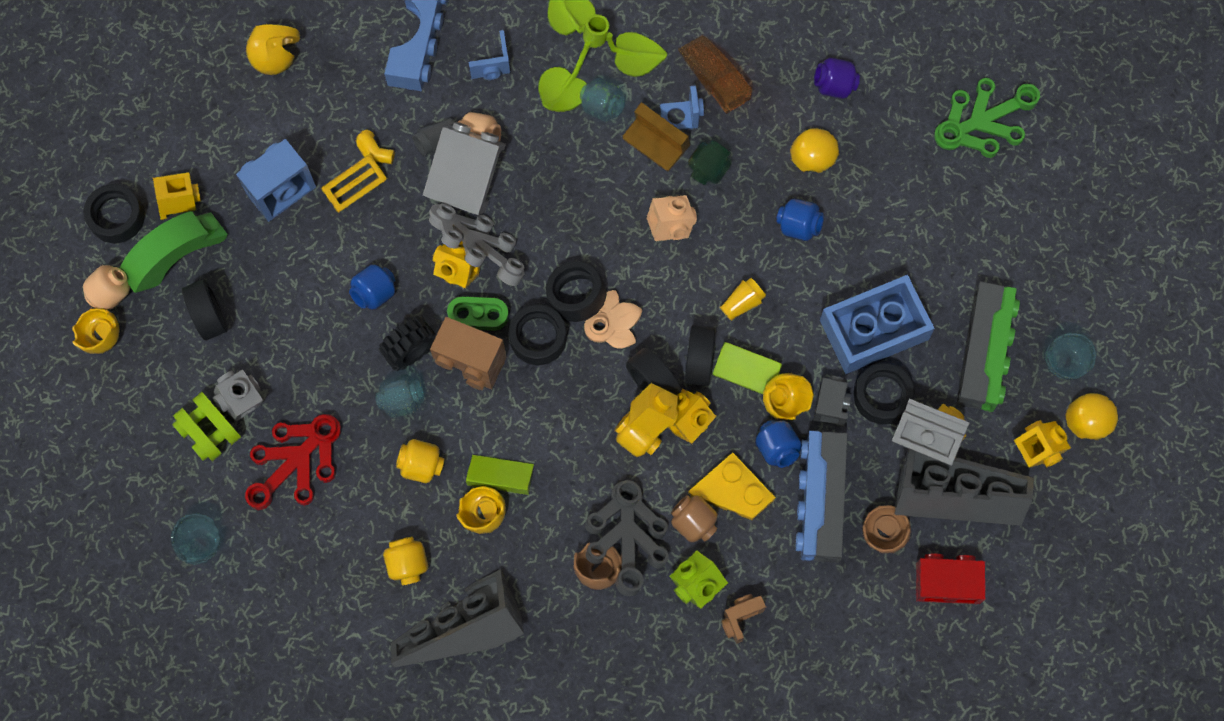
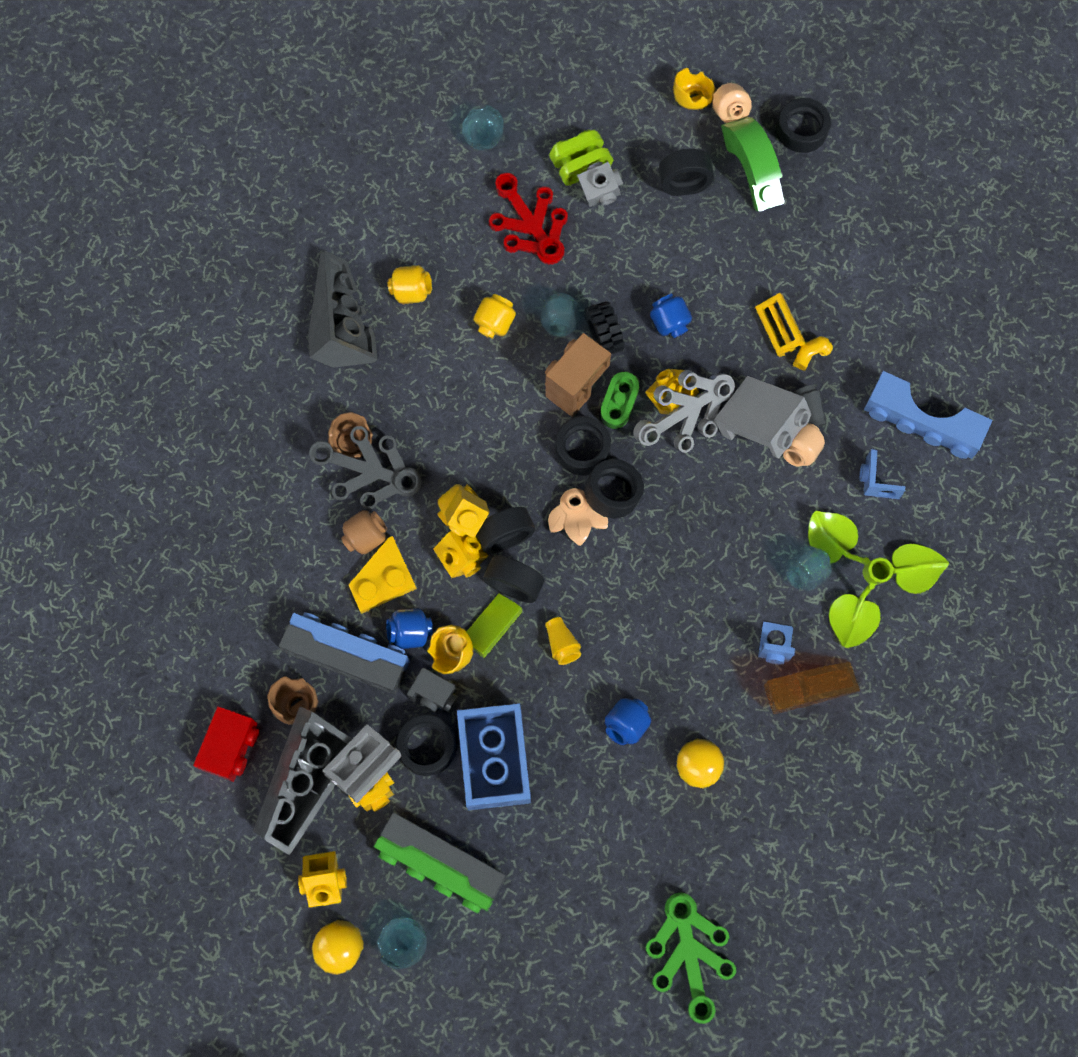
camera: 105 degrees right, 0 degrees up
(175, 194) = (807, 174): yellow brick -> none
(266, 50) = (937, 273): yellow helmet -> none
(276, 179) = (796, 253): medium blue brick -> none
(491, 505) = (429, 345): yellow hair -> none
(500, 474) = (462, 381): lime slope -> none
(656, 138) = (754, 610): pearl gold panel -> none
(671, 218) = (662, 596): light nougat brick -> none
(697, 580) = (306, 517): lime brick -> none
(709, 162) = (713, 651): clear green head -> none
(744, 608) = (267, 551): medium nougat bracket -> none
(836, 78) = (773, 809): dark purple head -> none

